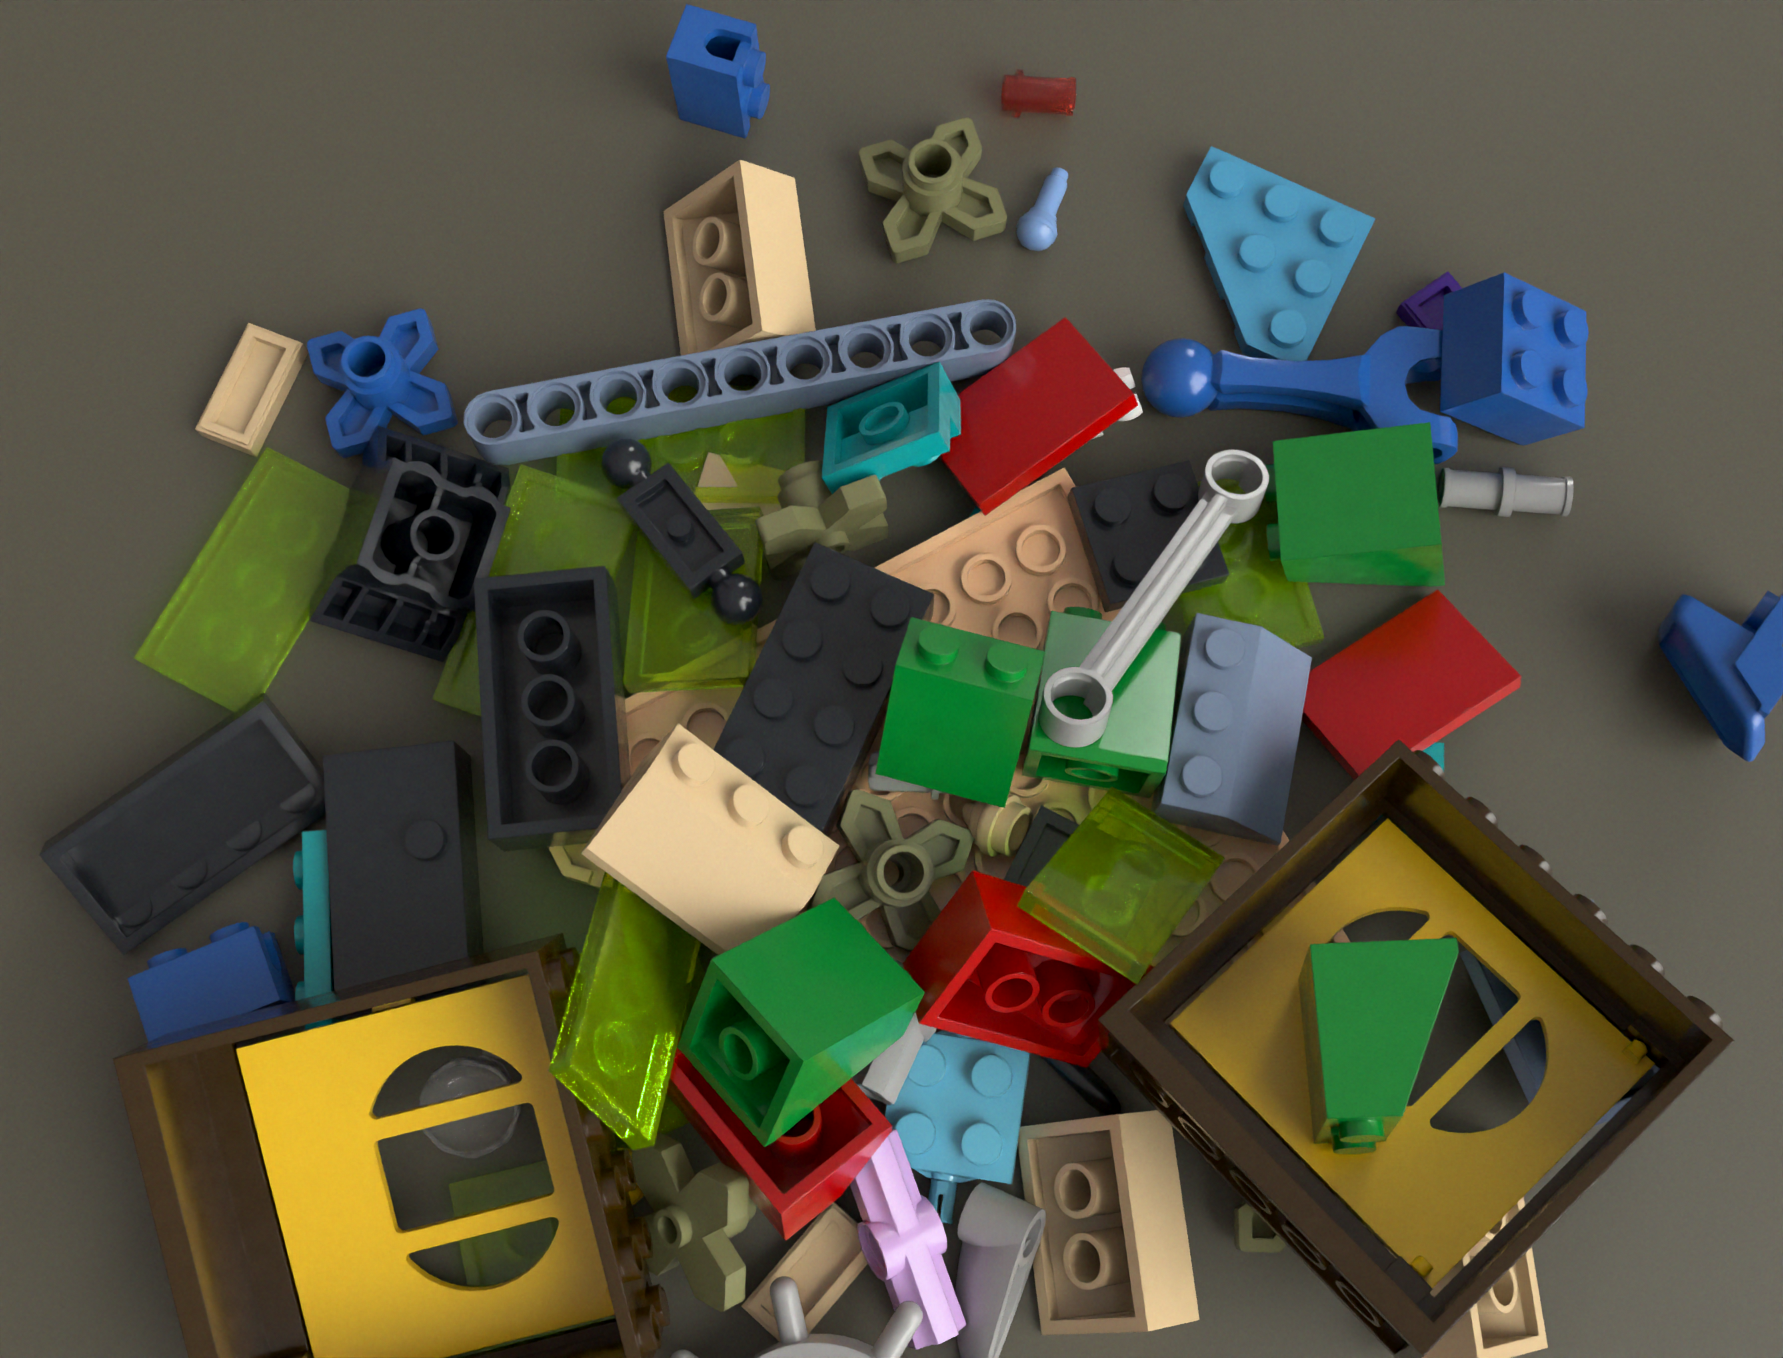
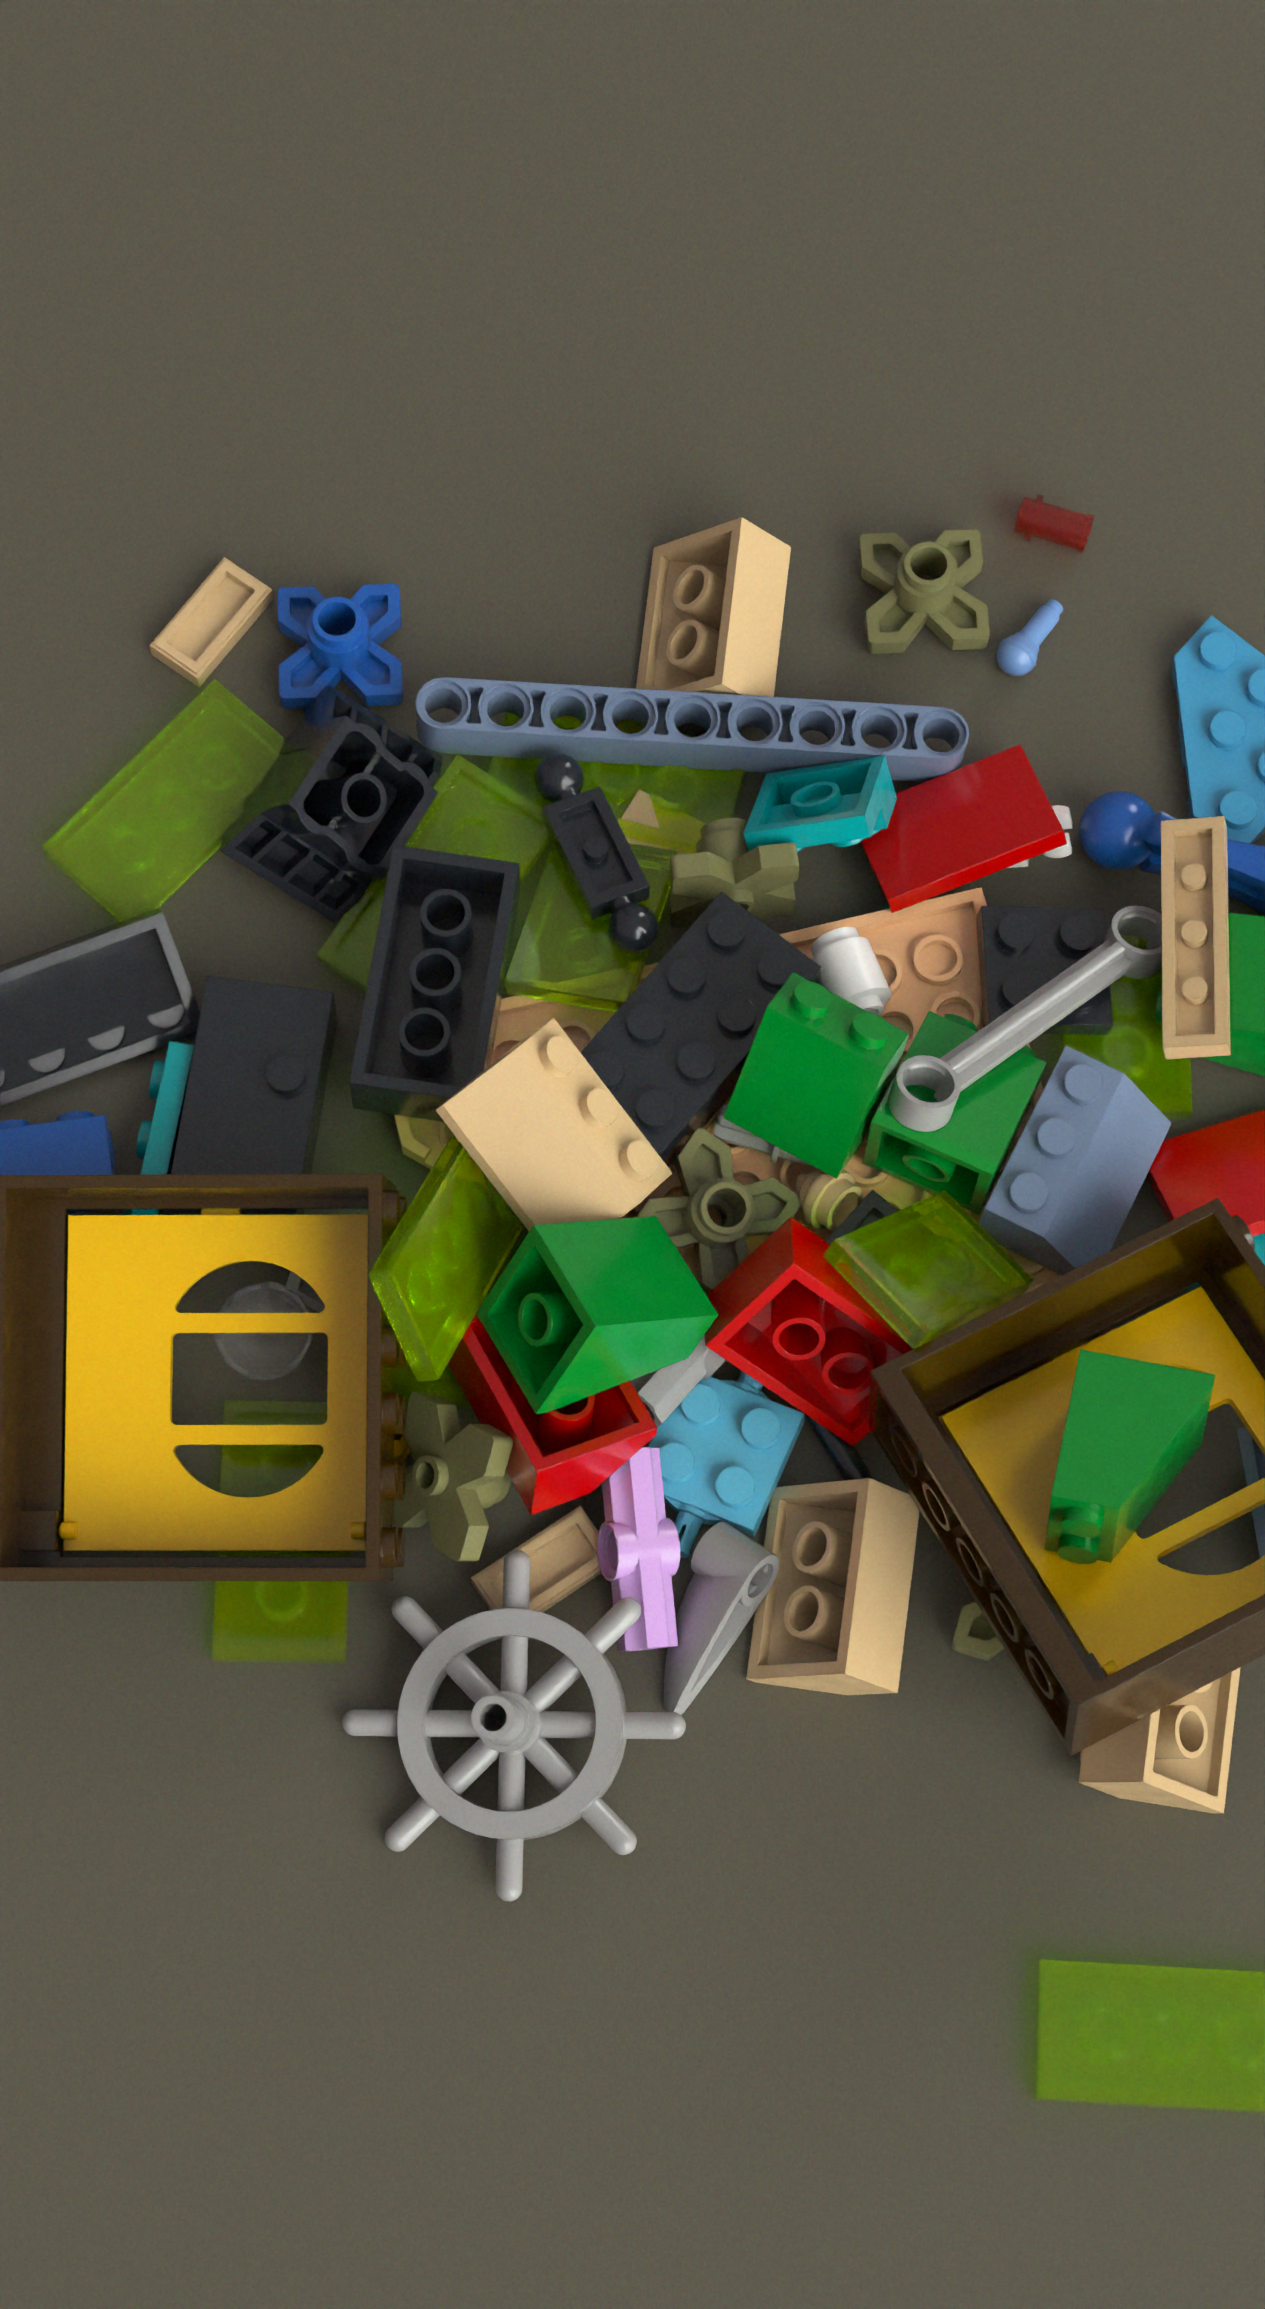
camera: 10 degrees right, 5 degrees down
(717, 71) = (742, 427): blue brick -> none
(962, 590) = (851, 969): none -> white brick
(1294, 472) = (1195, 938): none -> tan plate

